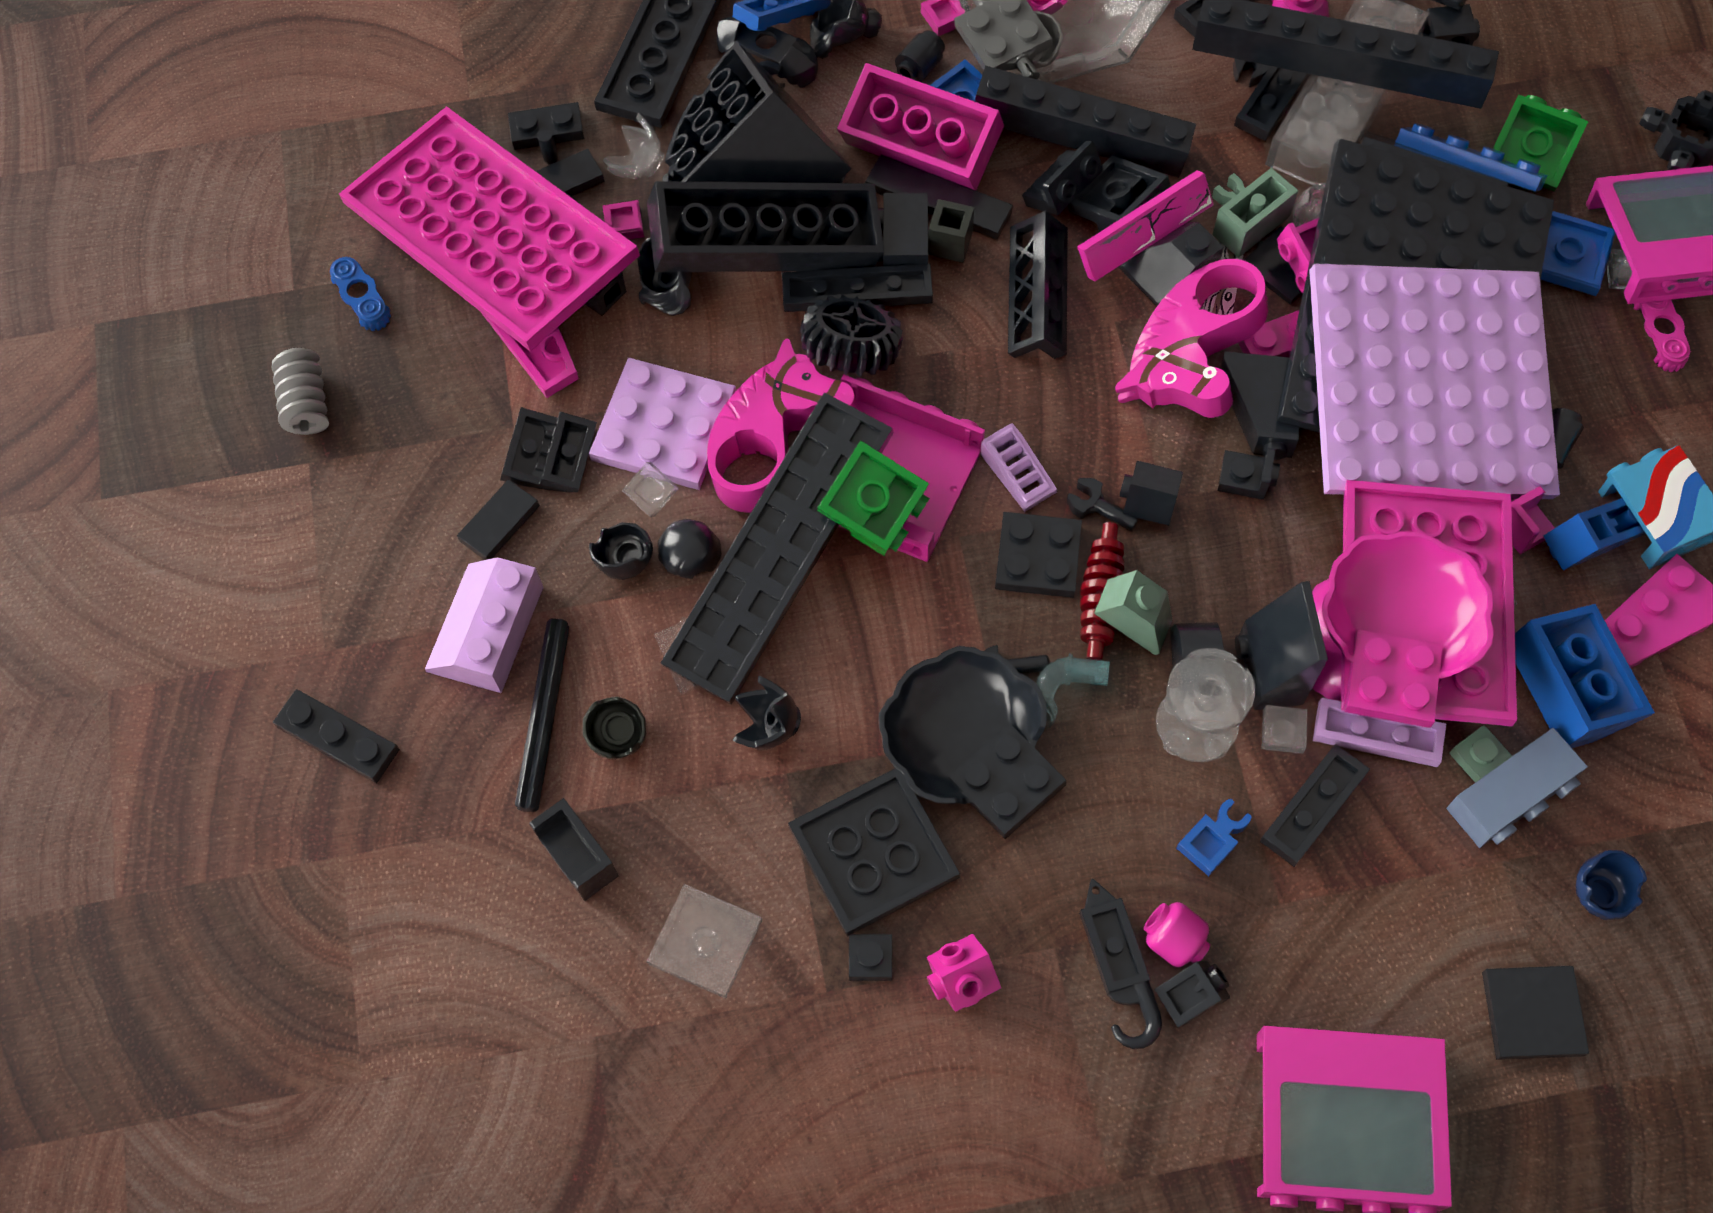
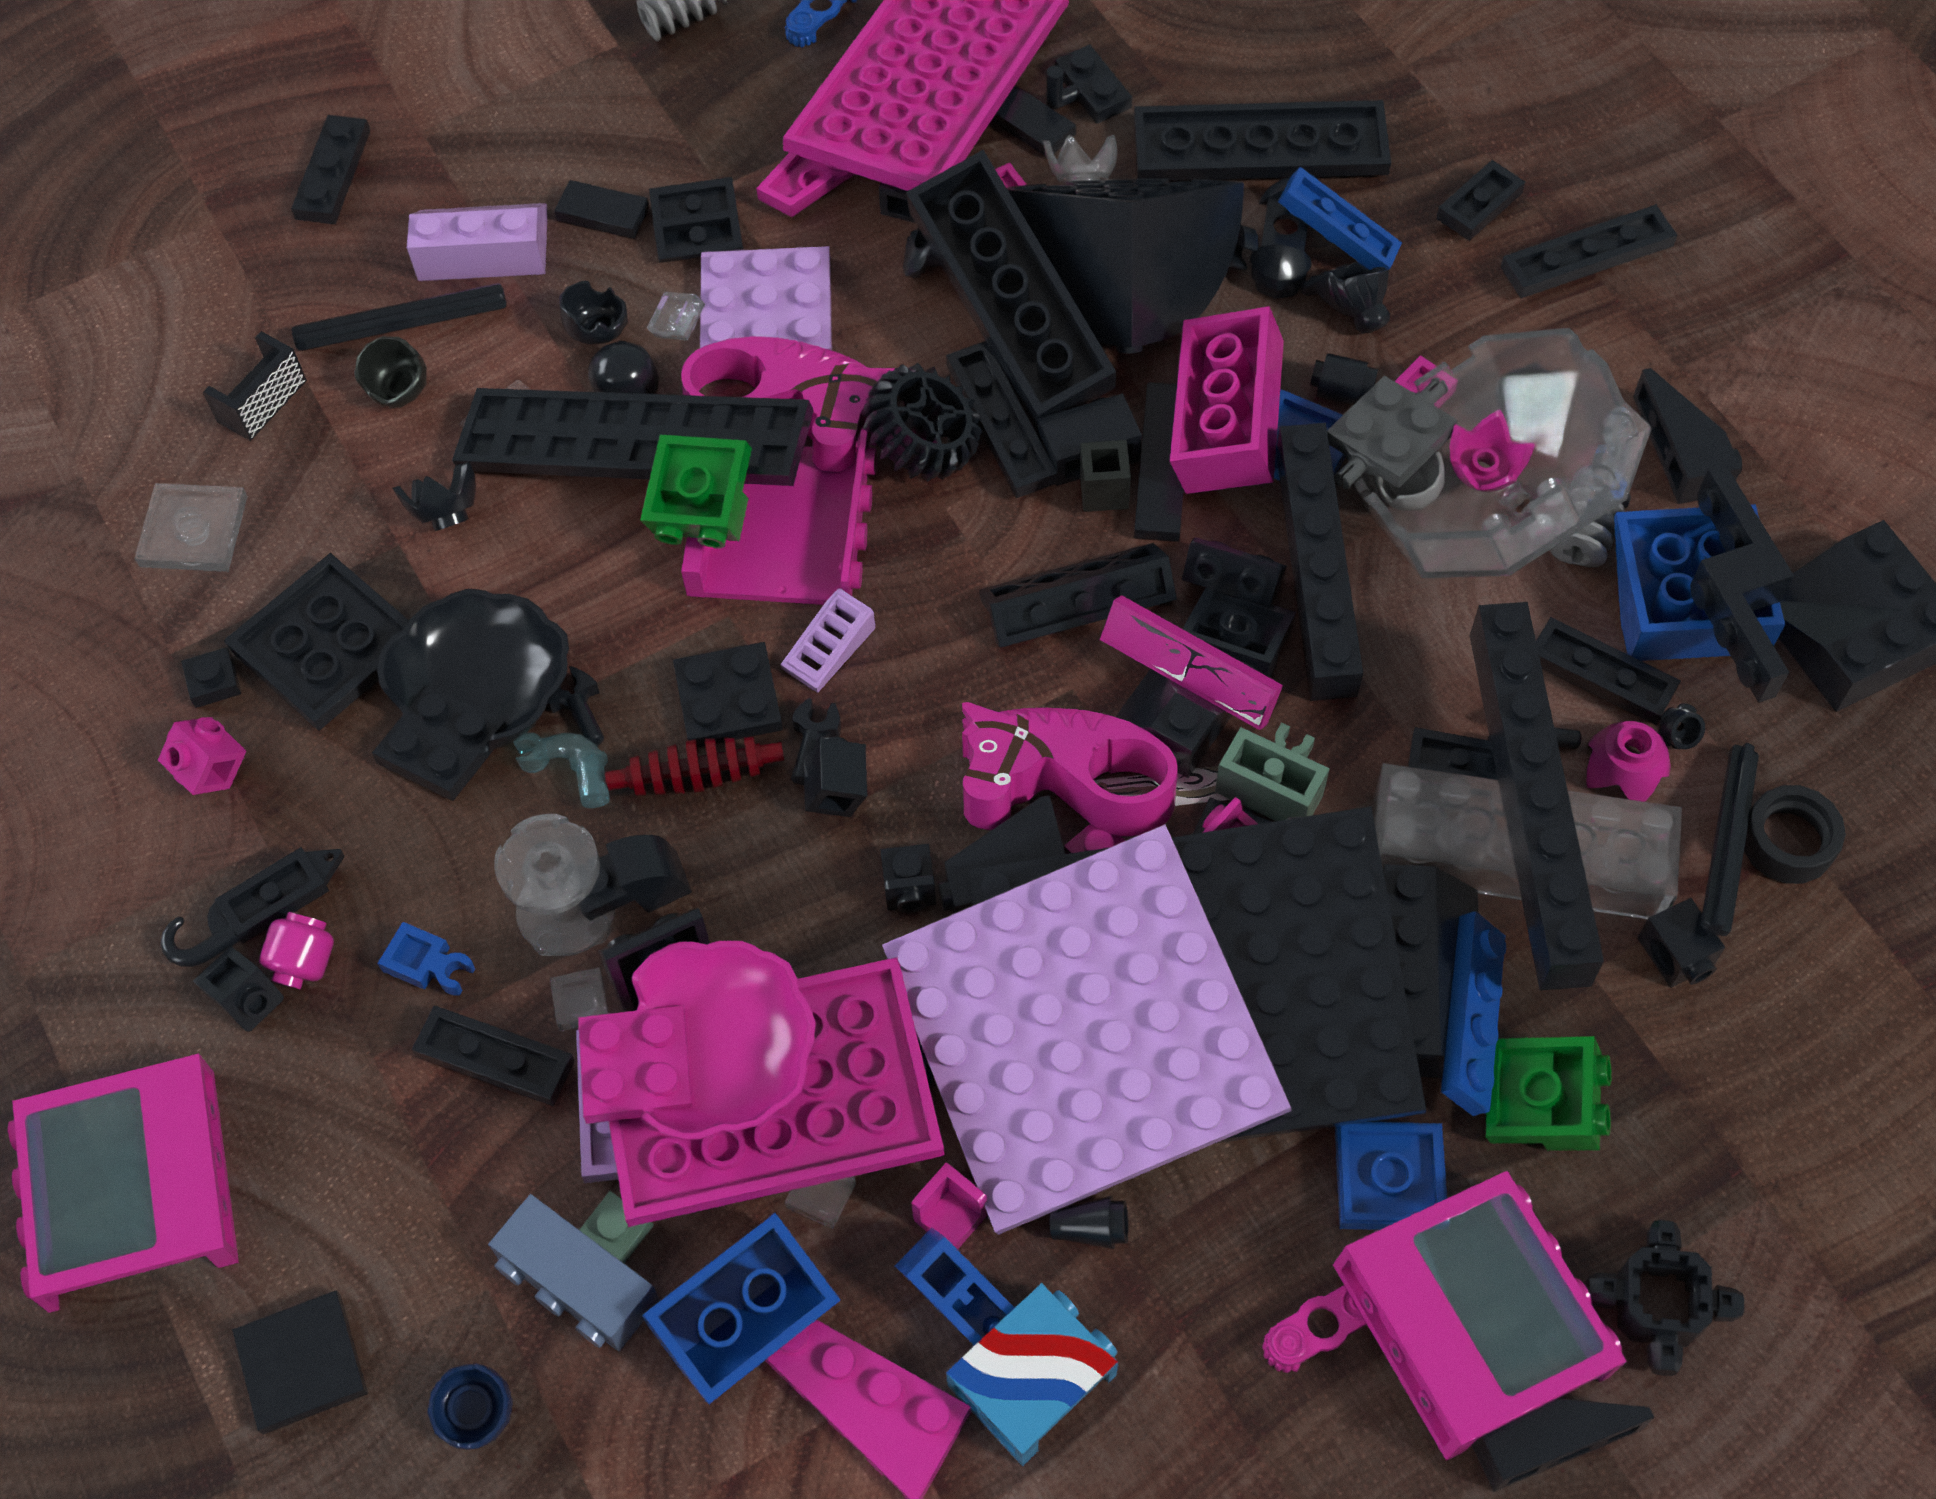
camera: 70 degrees right, 5 degrees down
(1137, 609) = (666, 797): sand green slope -> none

